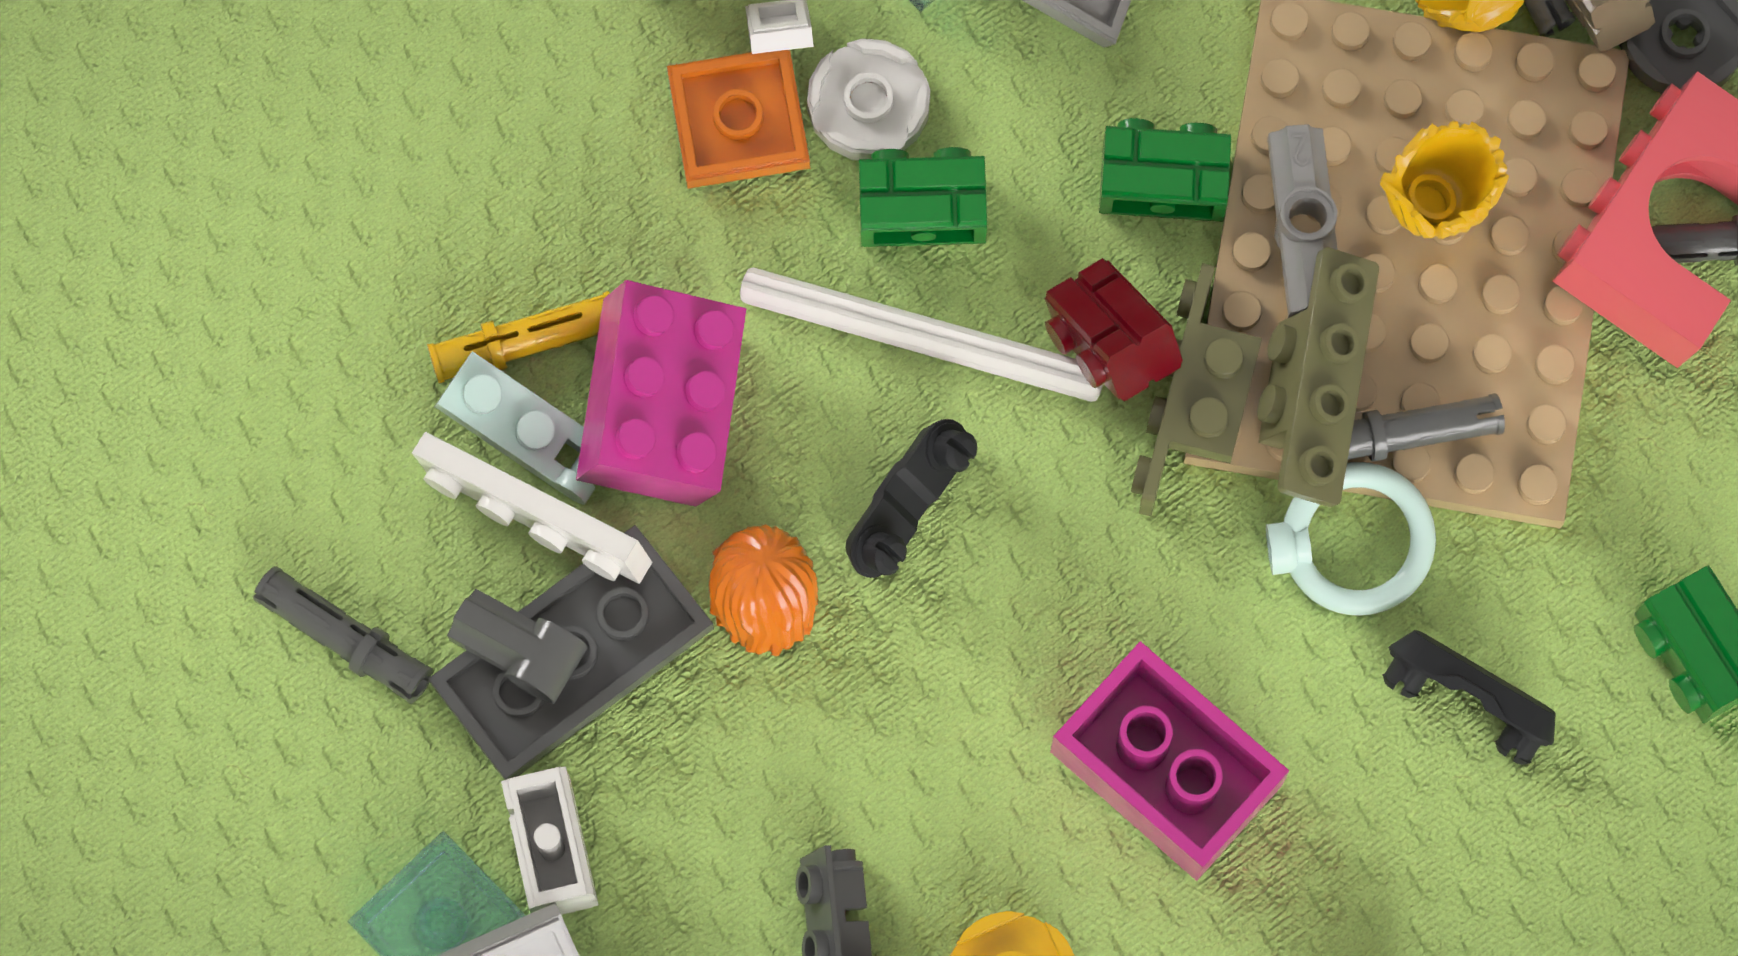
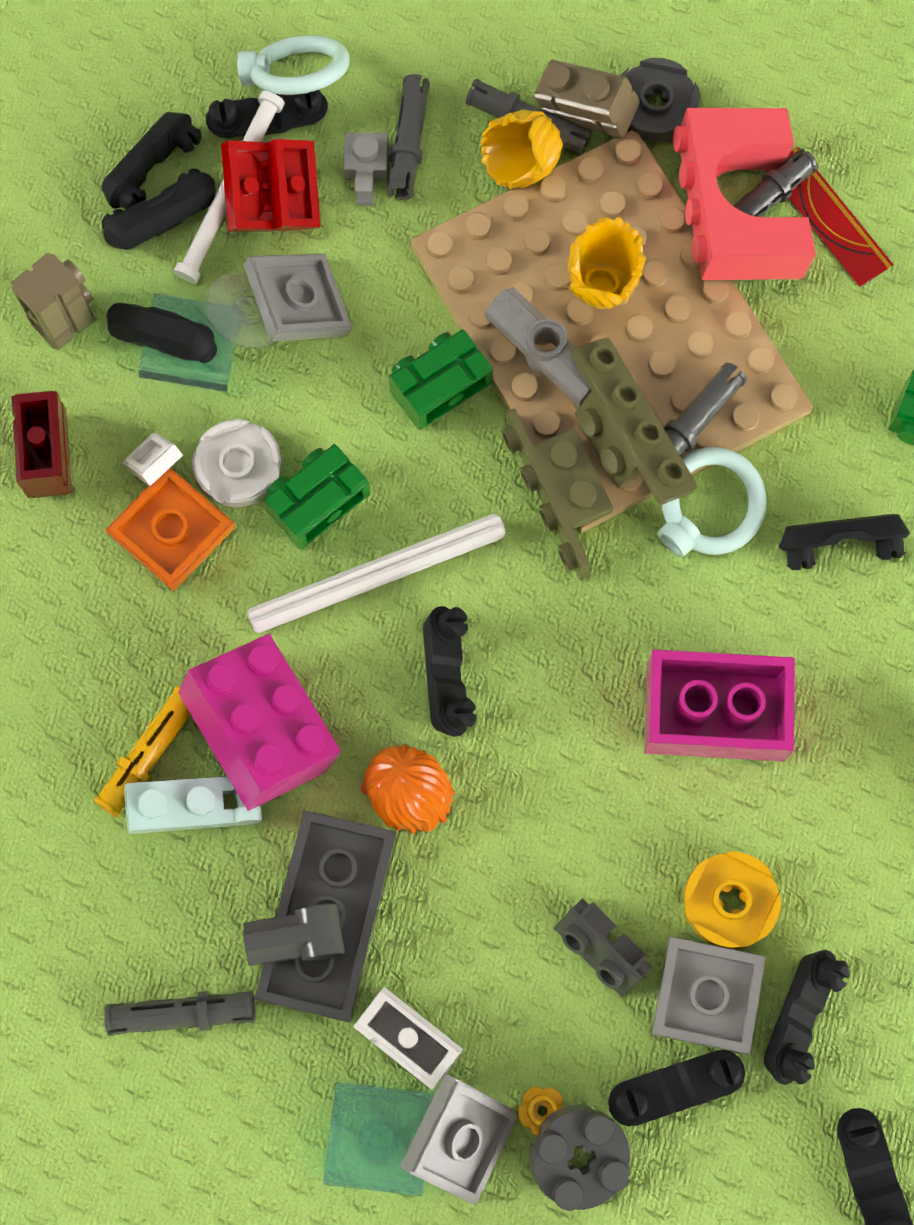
camera: 40 degrees left, 0 degrees up
(550, 520) = (255, 847): white plate -> none
(1111, 330) = (487, 487): dark red brick -> none

